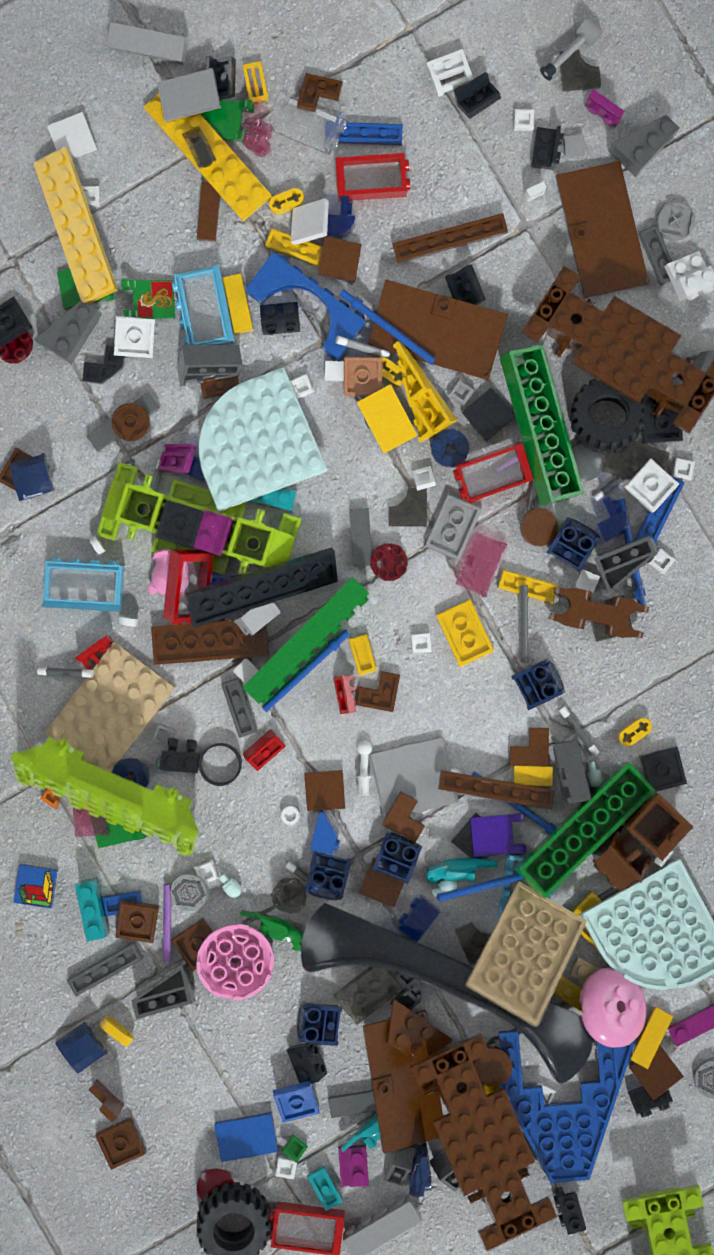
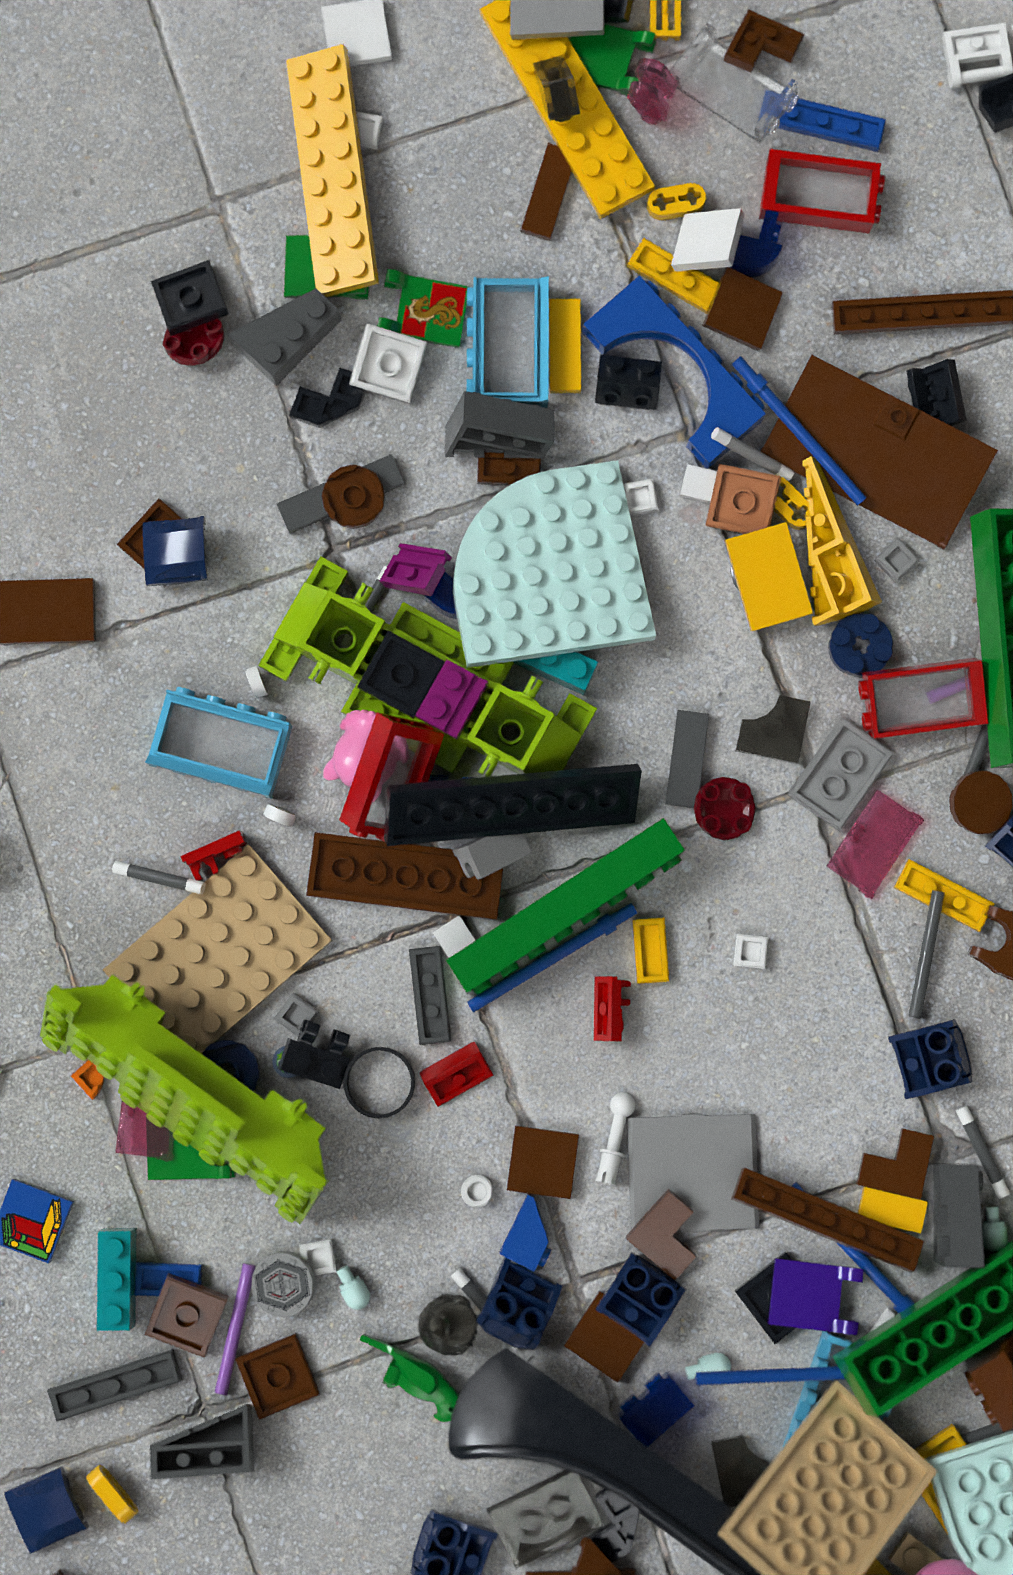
camera: 10 degrees right, 5 degrees down
(238, 979) = (342, 1448): bright pink brick -> none
(384, 697) = (667, 1029): reddish brown tile -> none
(423, 478) = (808, 684): white tile -> none
(458, 869) = (736, 1340): teal animal -> none
(464, 633) = (825, 950): yellow tile -> none
(488, 414) = (933, 604): black tile -> none

